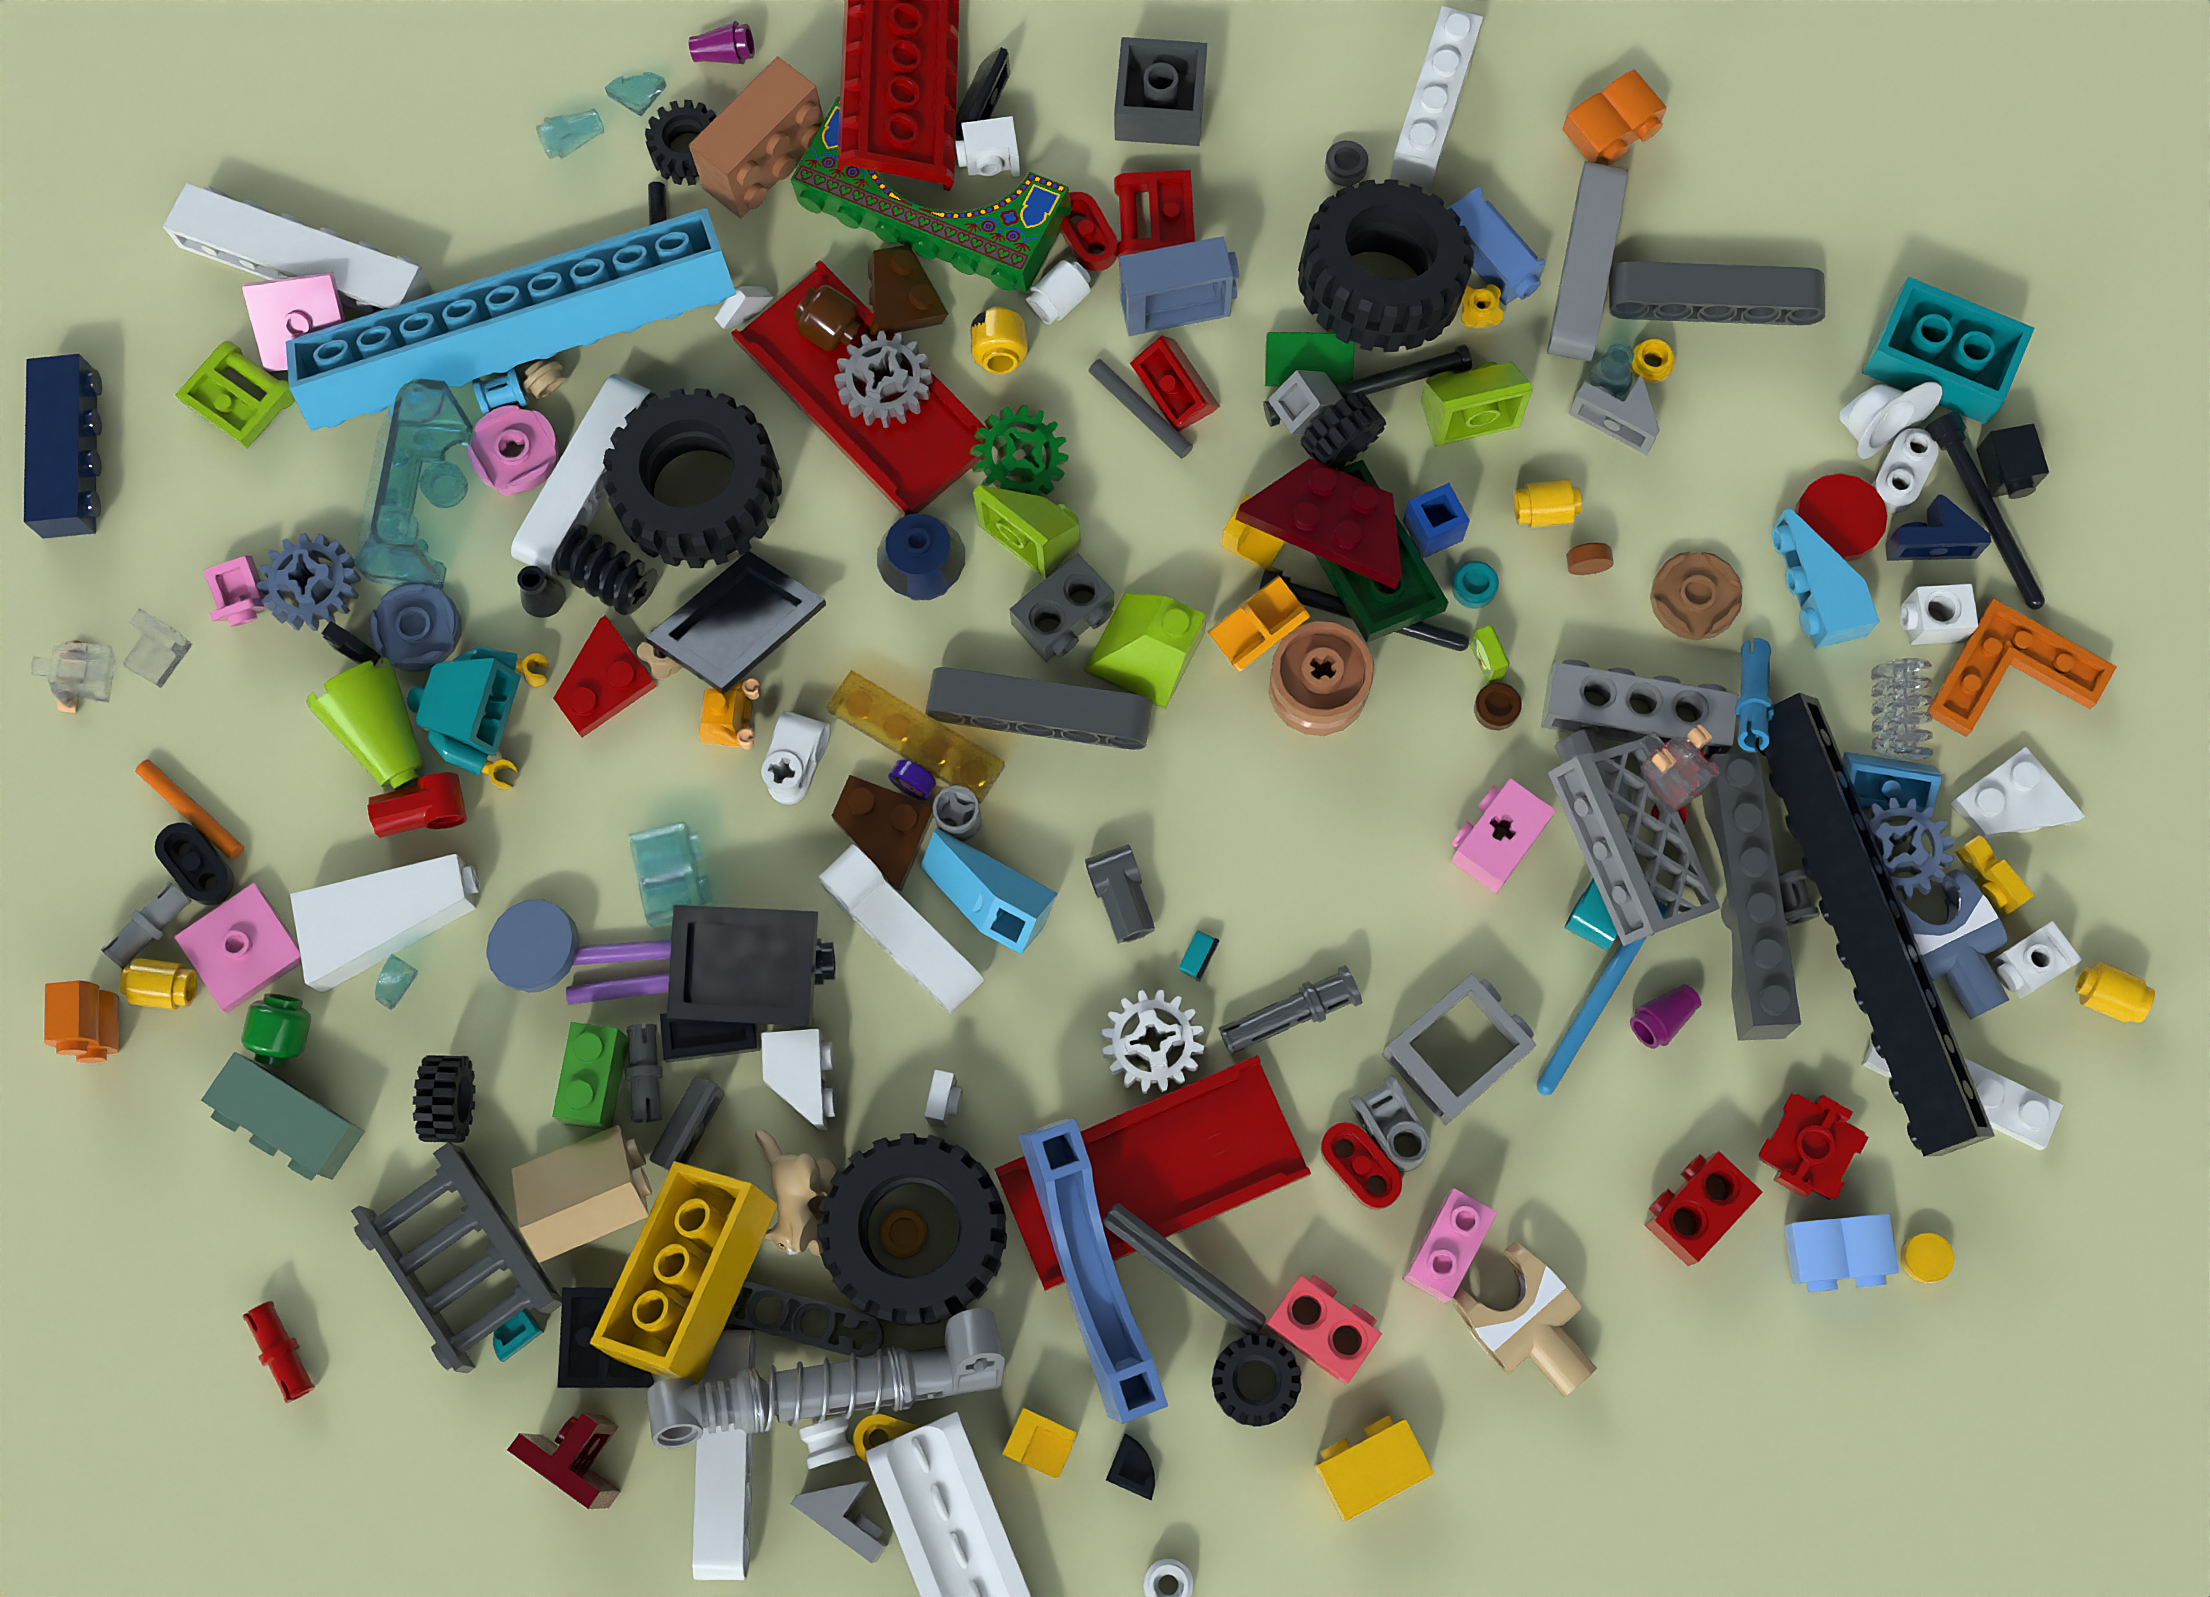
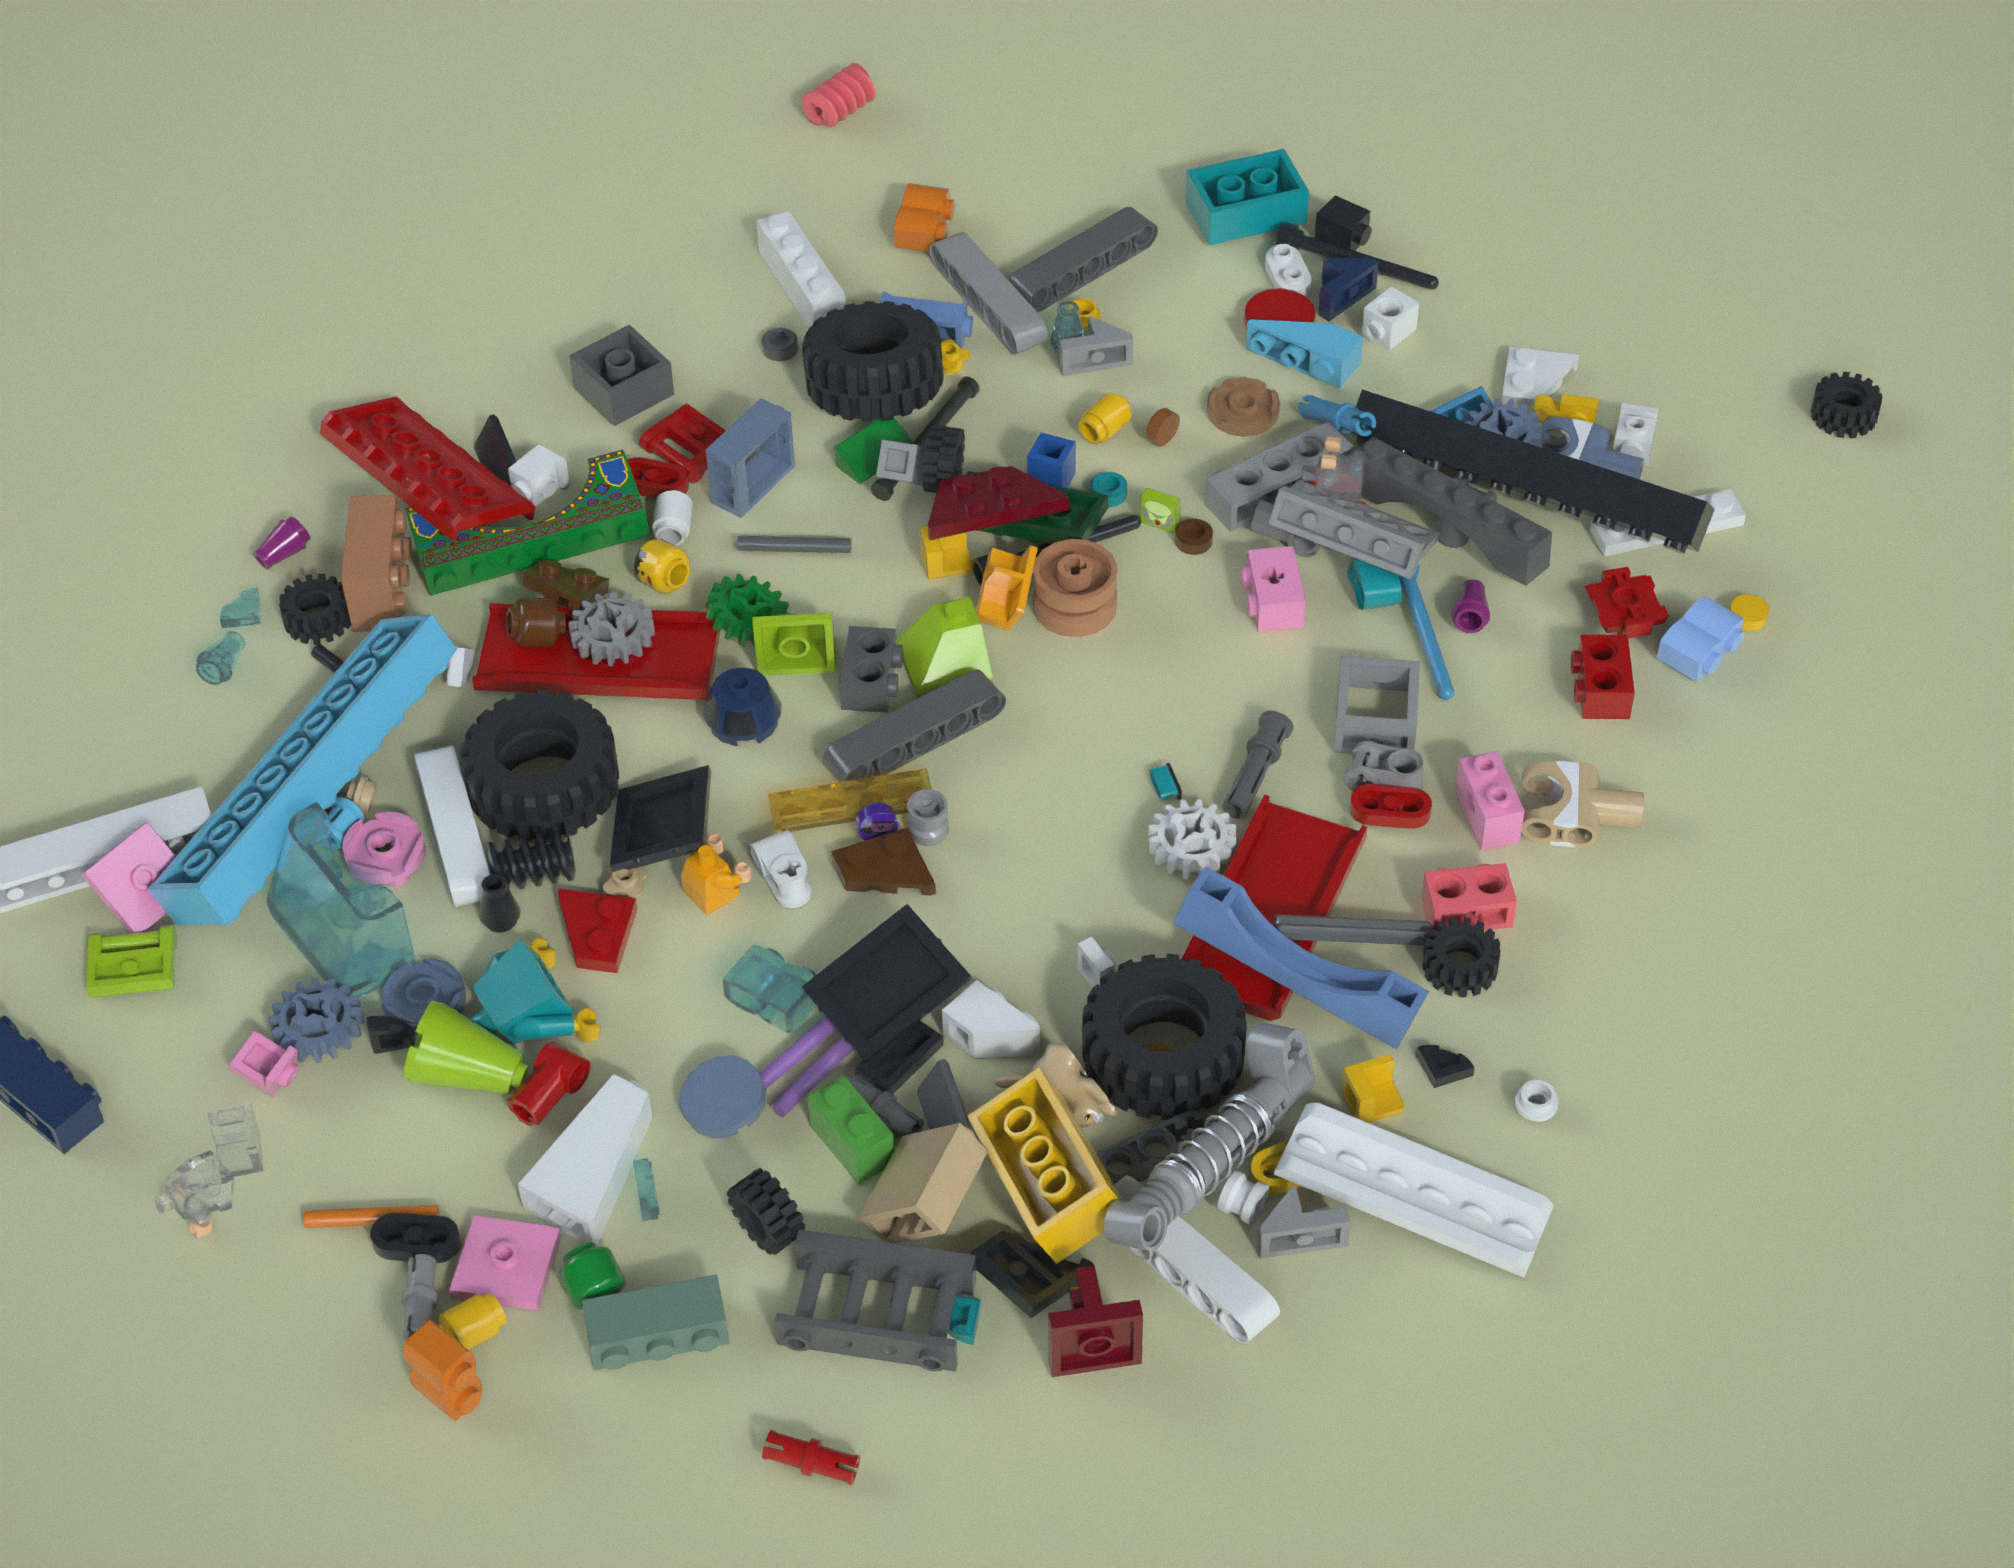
camera: 45 degrees left, 25 degrees down
(899, 929) = (965, 901): white beam -> none
(988, 892) = (993, 838): medium azure slope -> none
(1118, 882) = (1070, 777): dark grey piece -> none
(1174, 383) = (800, 517): red slope -> none
(1373, 1468) = (1580, 943): yellow brick -> none
(1475, 402) = (1005, 396): lime slope -> none
(1885, 412) = (1247, 247): white piece -> none
(1897, 709) = (1424, 372): clear piece -> none
(2018, 641) = (1443, 307): orange plate -> none
(2114, 993) = (1693, 419): yellow brick -> none

